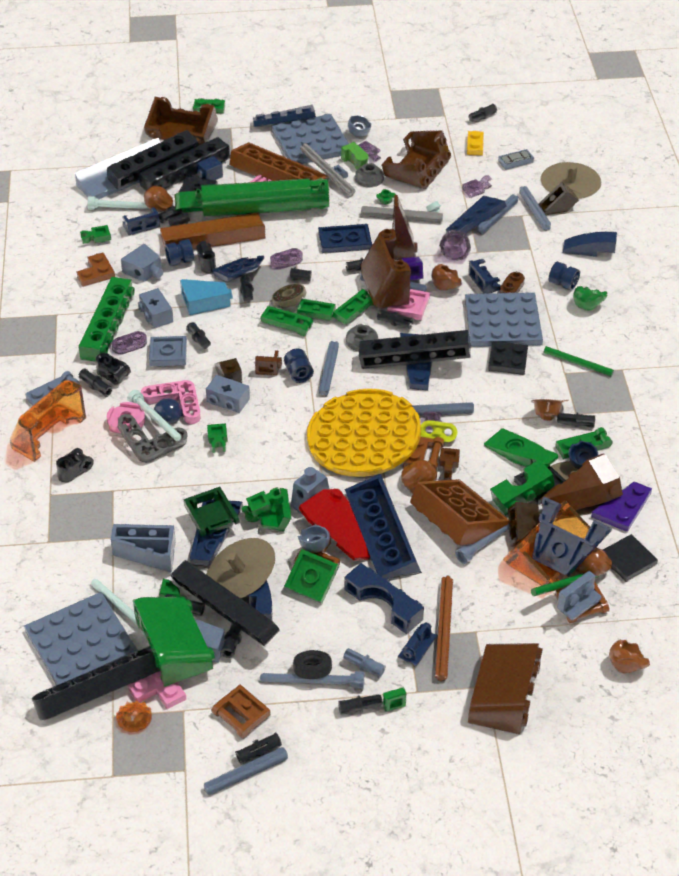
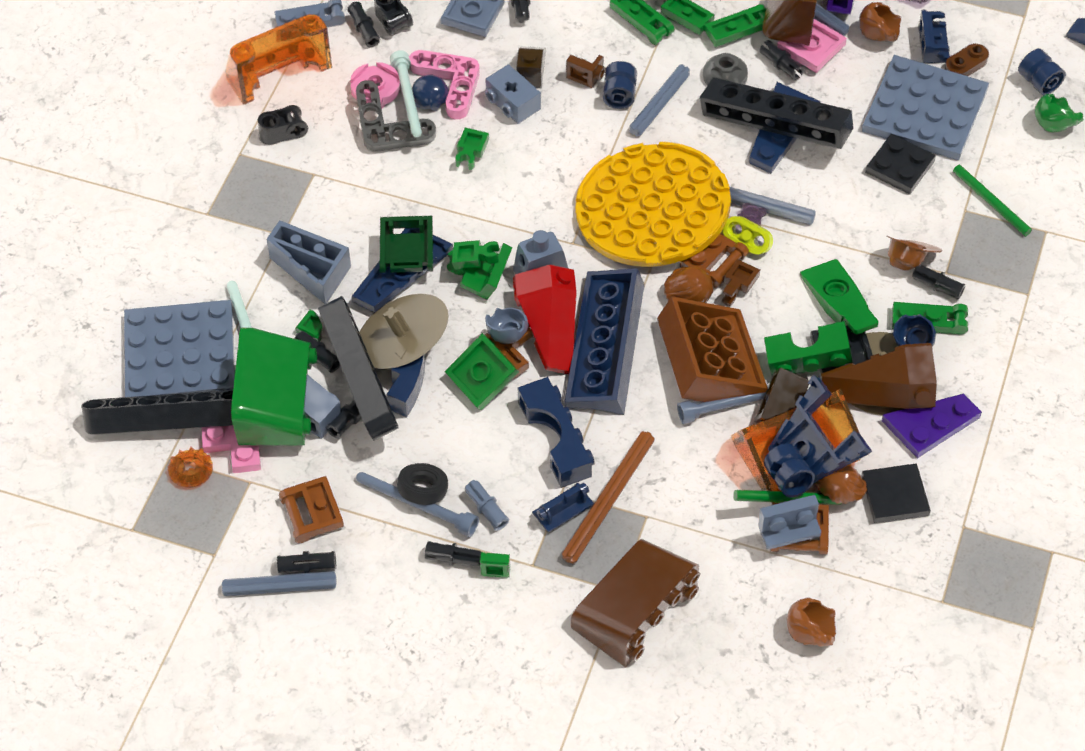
camera: 25 degrees right, 10 degrees up
(560, 562) = (789, 470): none -> dark blue wheel

